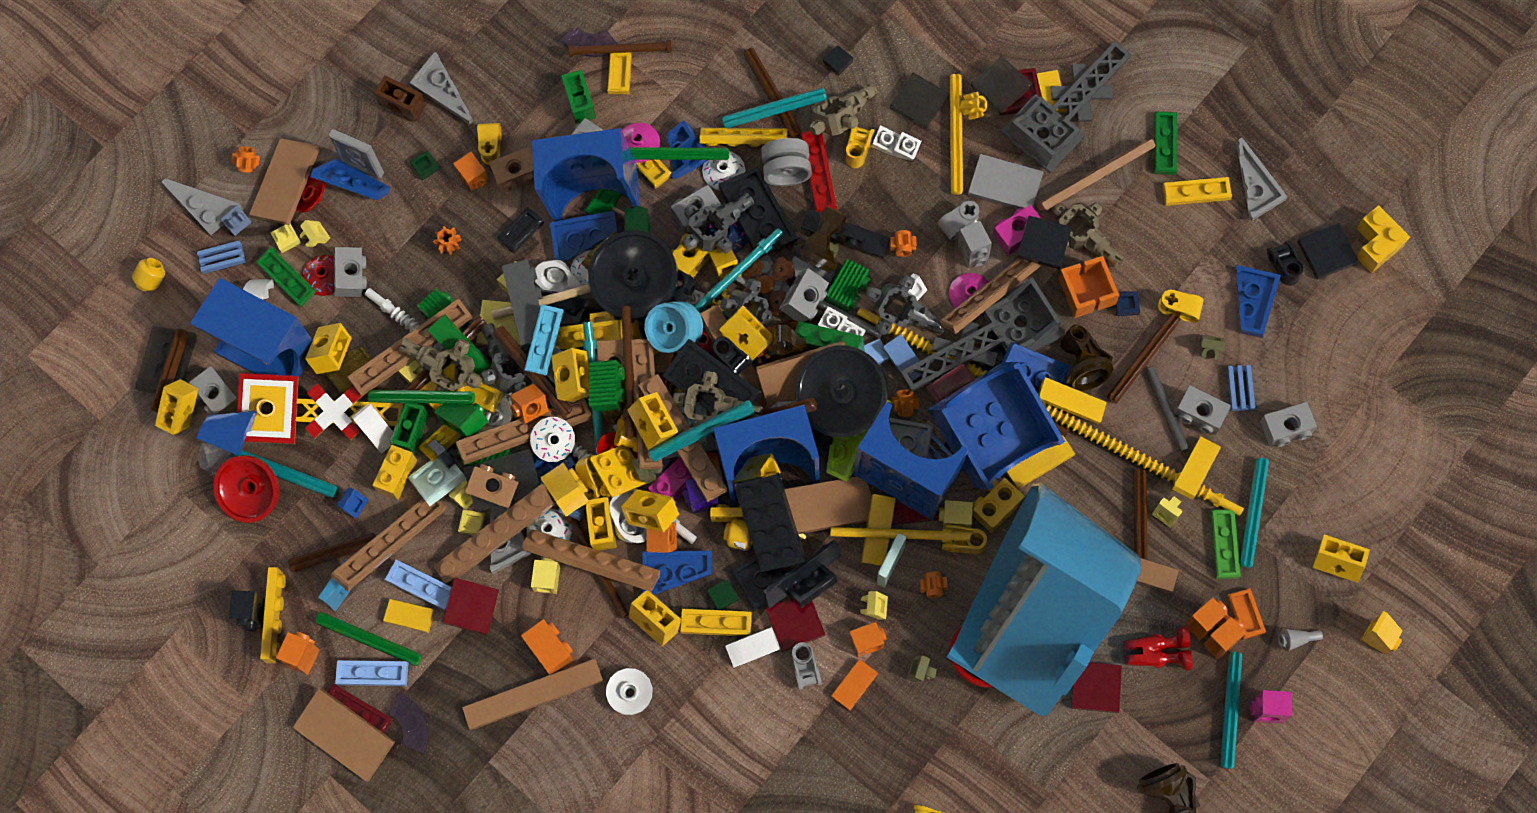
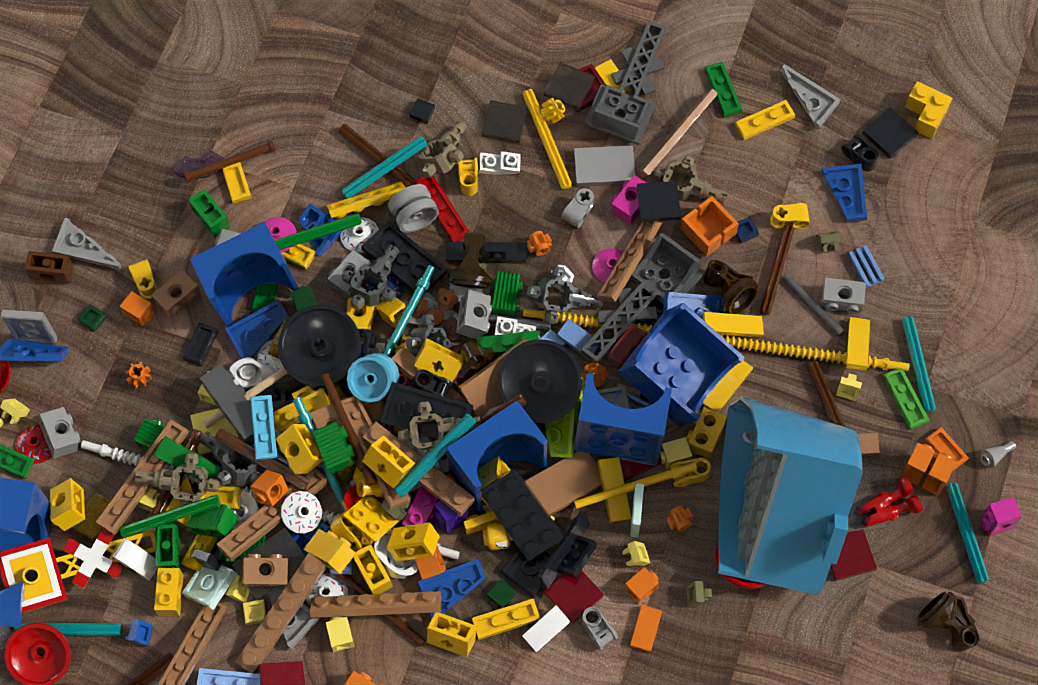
camera: 25 degrees left, 5 degrees down
(974, 244) = (600, 223): light grey brick -> none
(1298, 415) = (922, 273): light grey brick -> none
(1341, 558) = (1005, 375): yellow brick -> none

